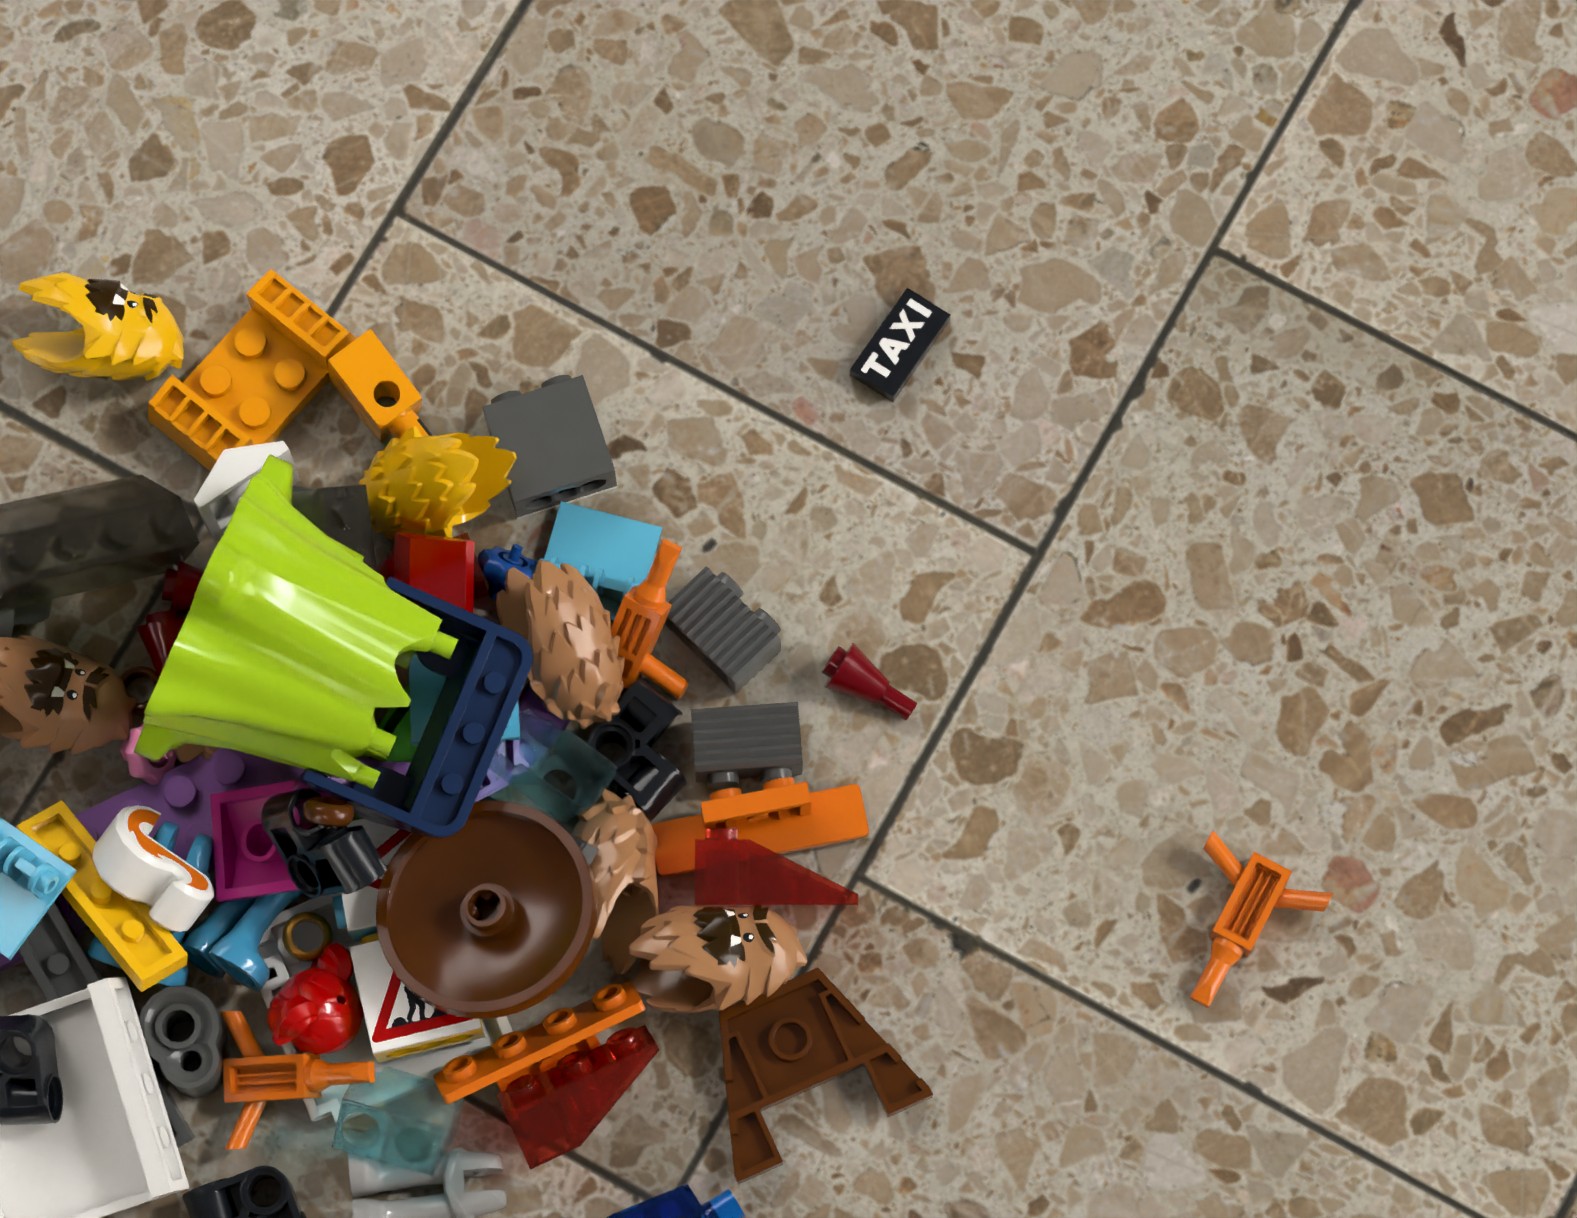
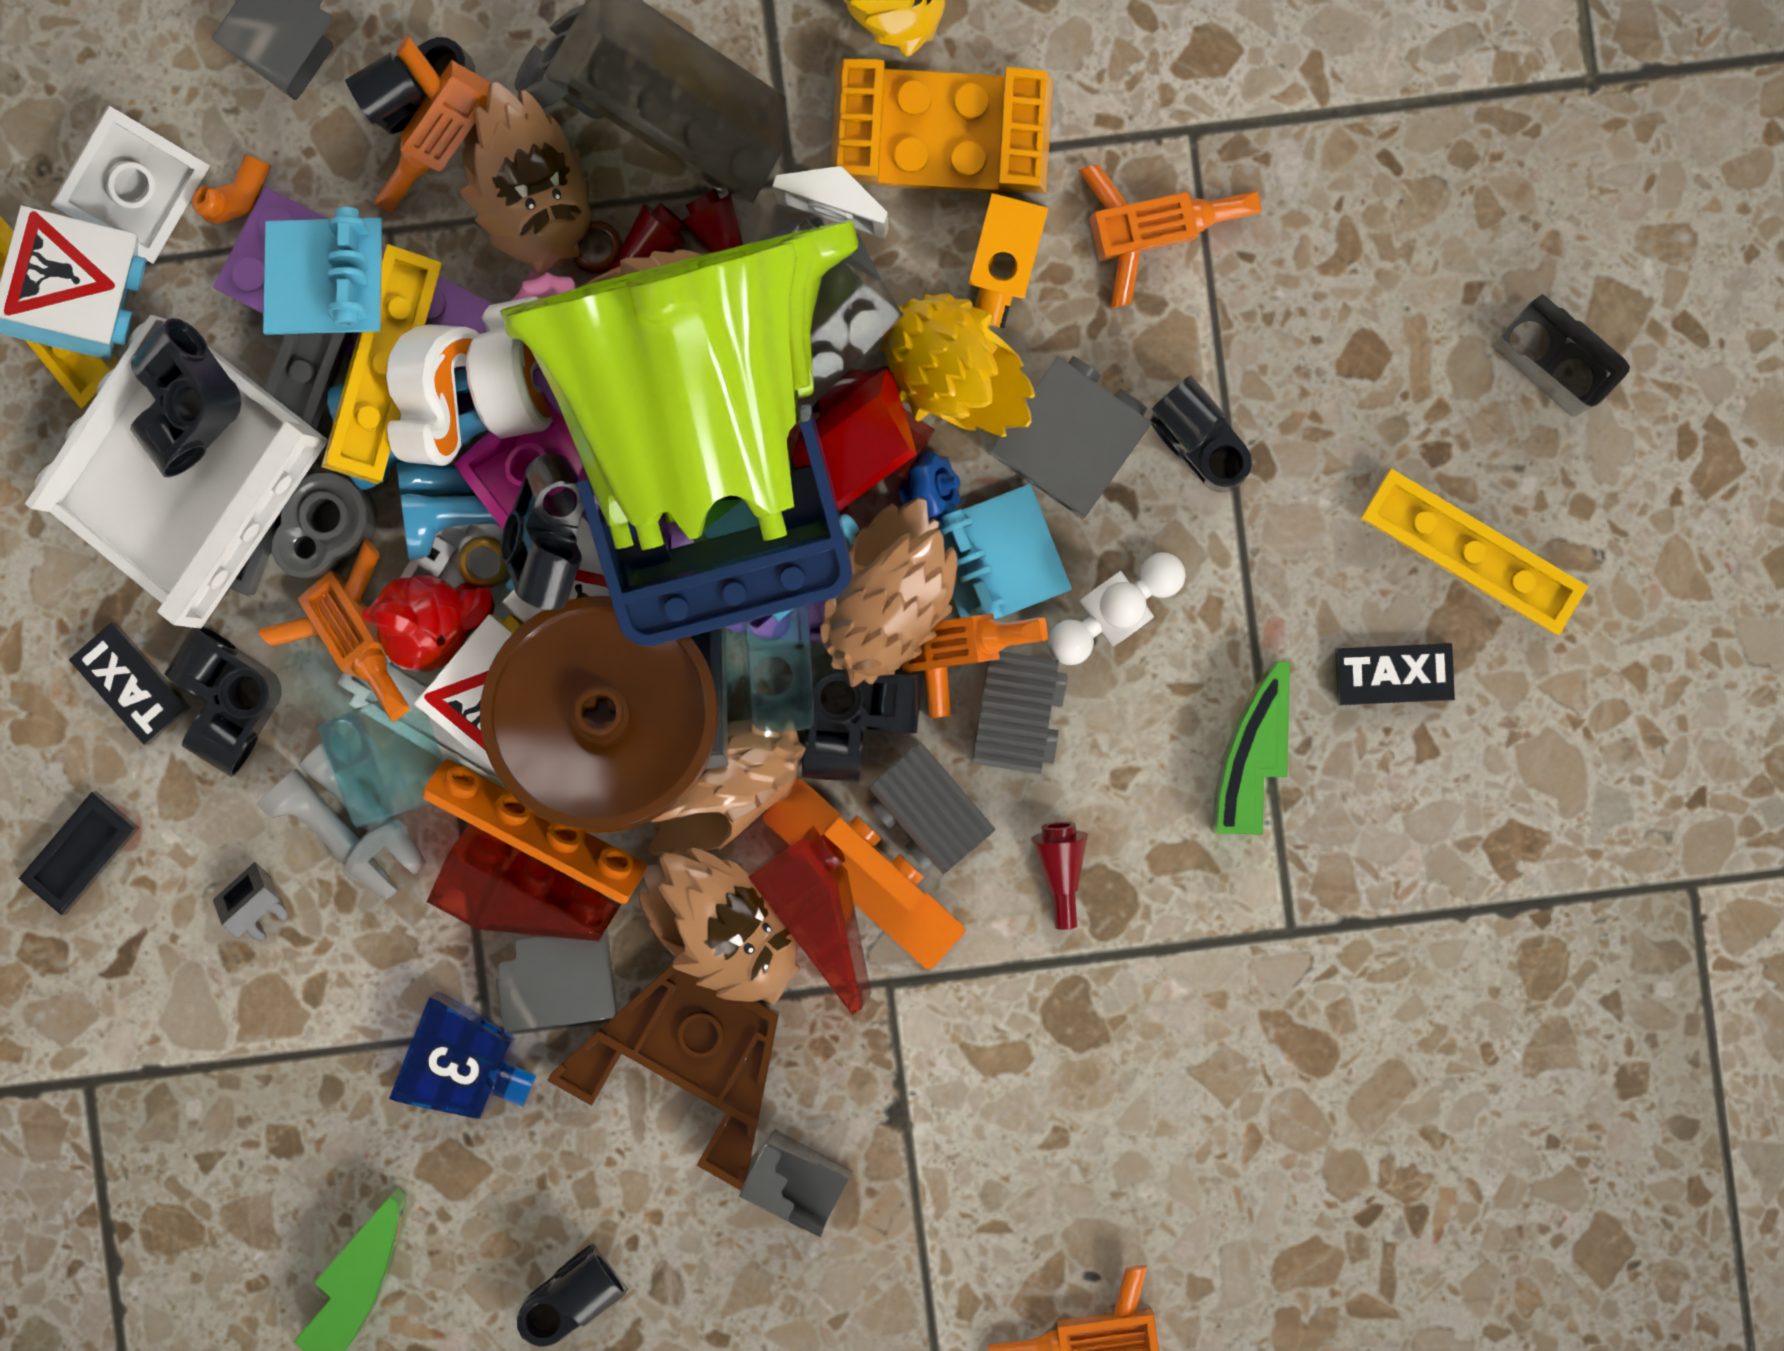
camera: 55 degrees right, 15 degrees up
(181, 801) = (503, 380): none -> white animal
(328, 811) = (569, 522): reddish brown piece -> none
(439, 284) = (1153, 224): none -> orange piece
(611, 352) = (1195, 430): none -> black piece
(667, 1117) = (556, 983): none -> dark grey piece
(700, 502) = (1116, 608): none -> white piece
(757, 89) = (1559, 327): none -> dark grey piece
(852, 227) = (1473, 552): none -> yellow plate
(884, 482) = (1253, 752): none -> bright green slope
(953, 1042) = (795, 1183): none -> dark grey piece

